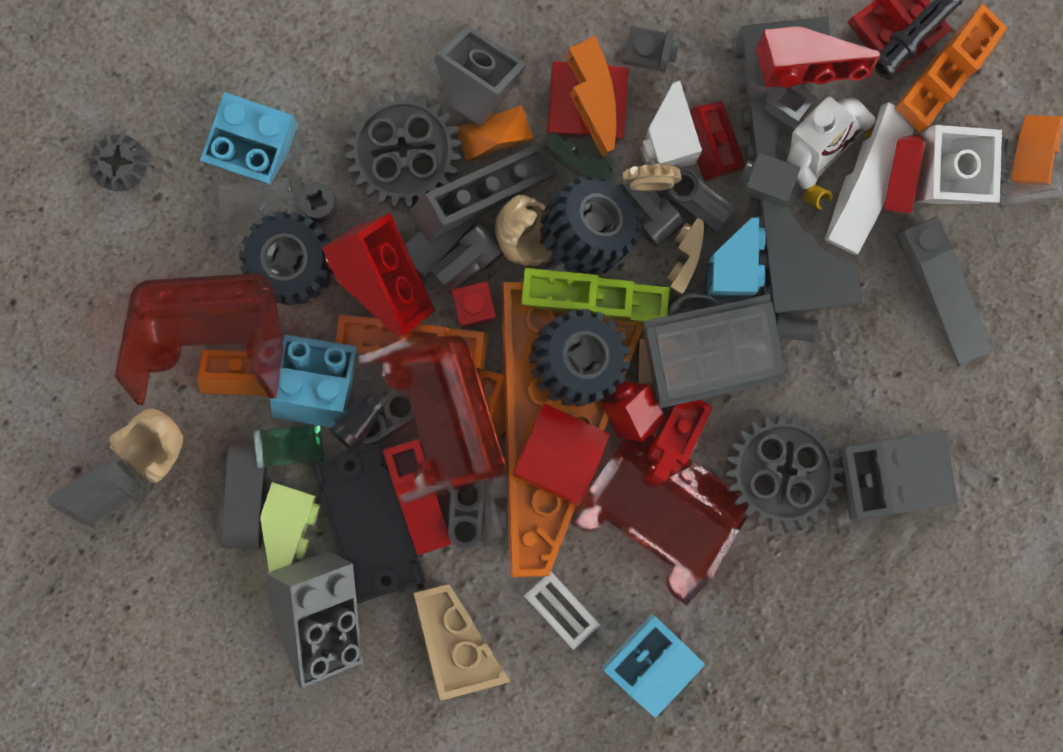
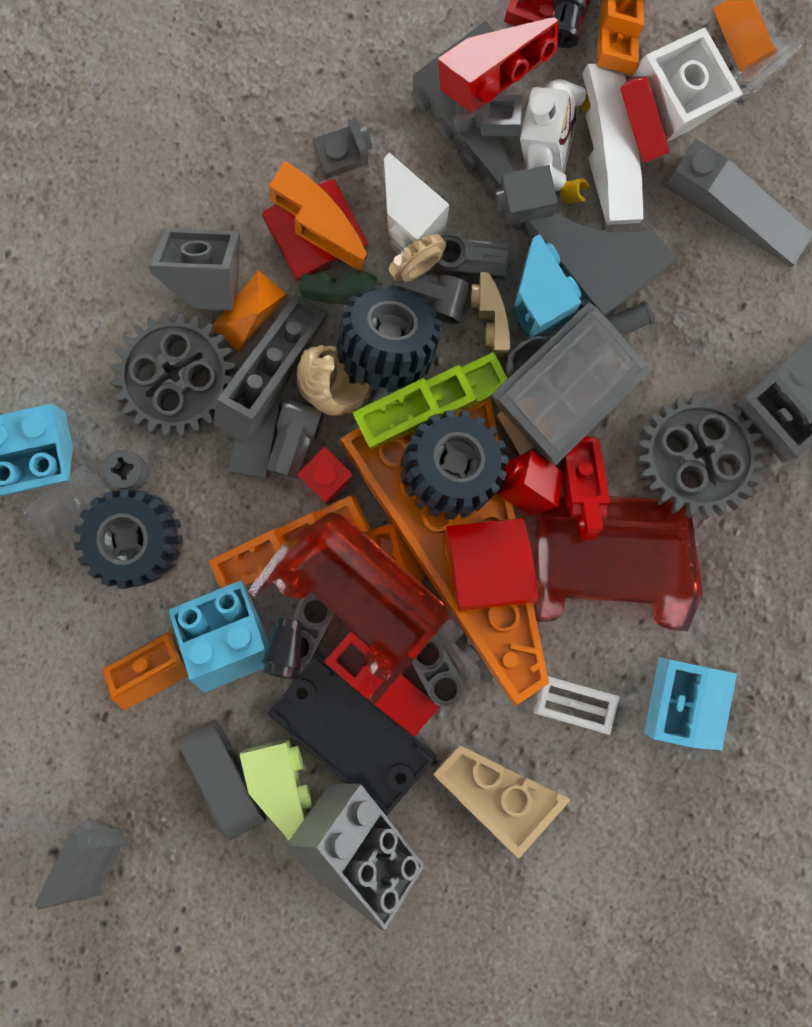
camera: 30 degrees left, 0 degrees up
(149, 444) = (103, 788): tan hair -> none
(199, 312) = (70, 640): clear red windscreen -> none
(288, 446) = (234, 711): clear green slope -> none
(380, 273) = (222, 500): red slope -> none
(717, 140) = (465, 203): red slope -> none

